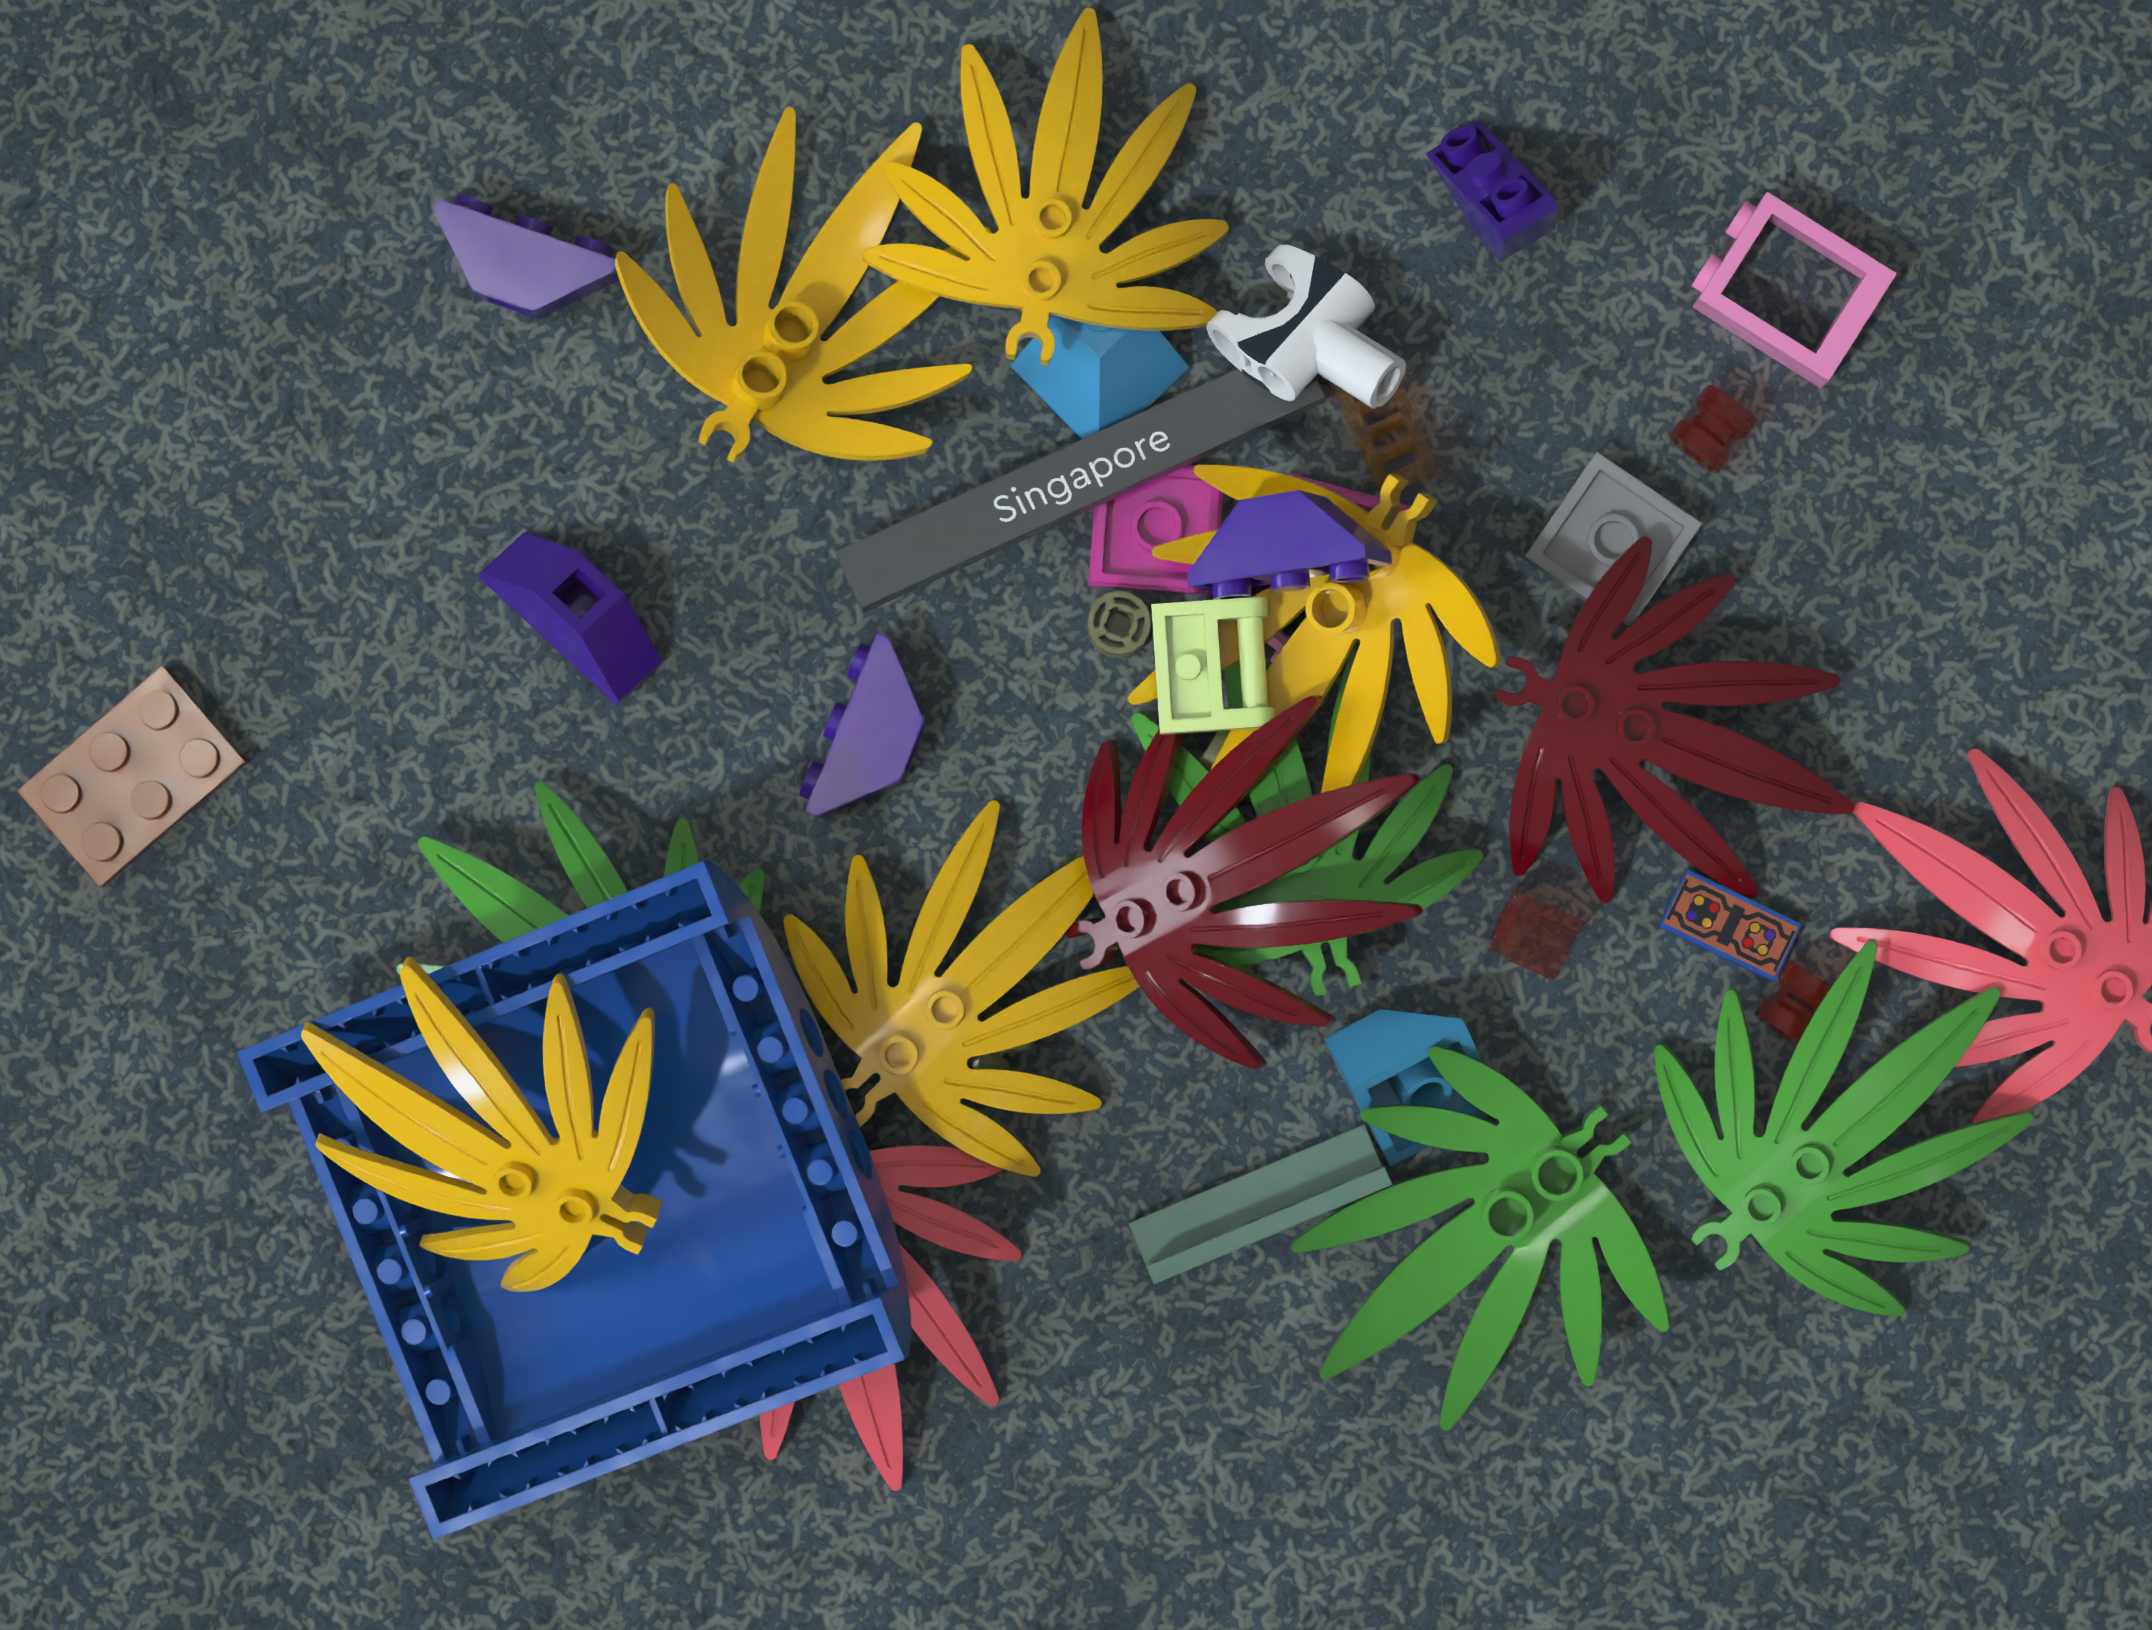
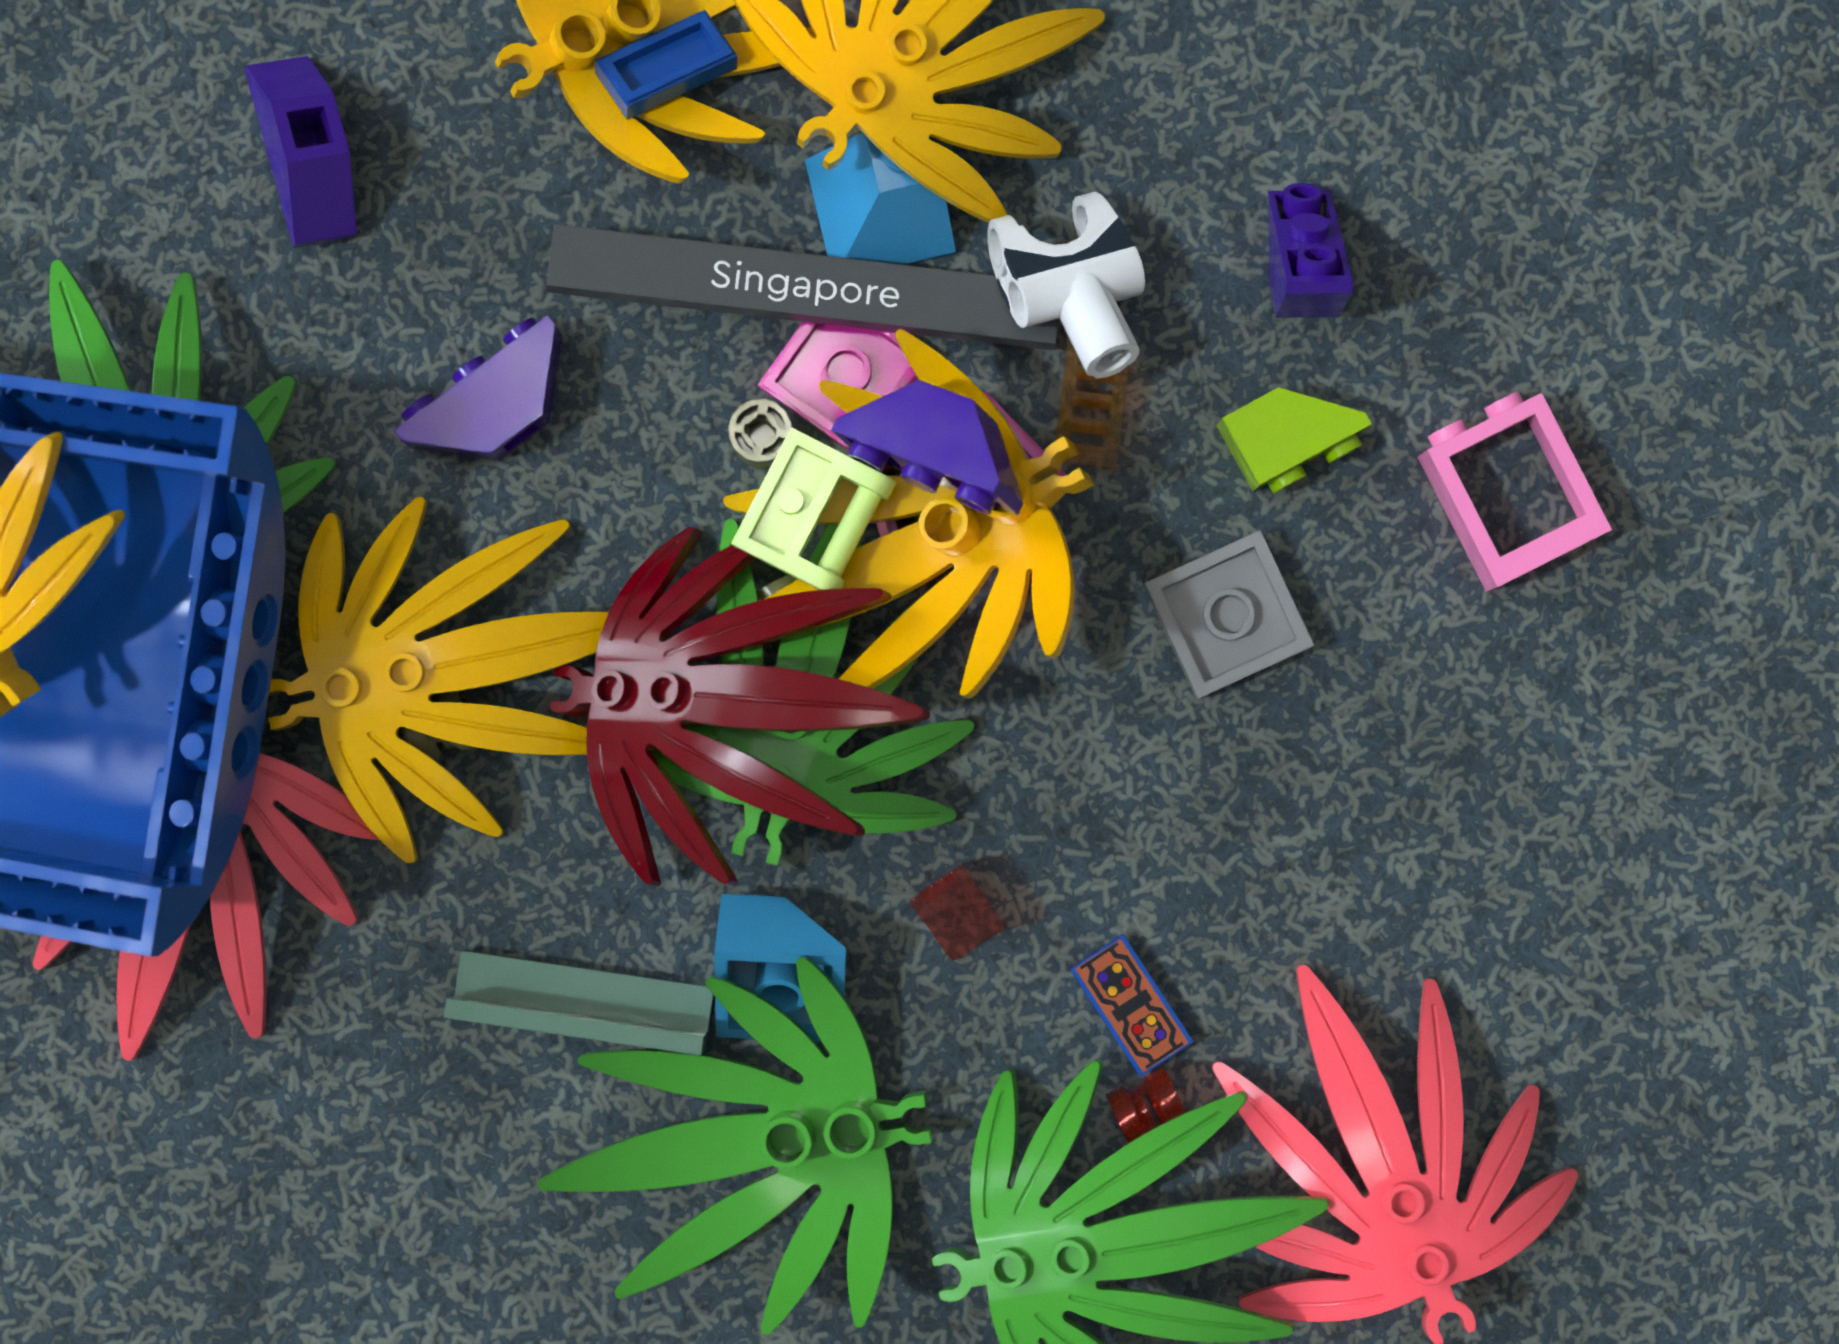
camera: 30 degrees right, 0 degrees up
(845, 355) = (665, 64): none -> blue tile
(1567, 354) = (1285, 431): none -> lime slope
(1613, 718) = (1134, 766): dark red plant -> none
(1708, 435) = (1365, 572): clear red wheel -> none

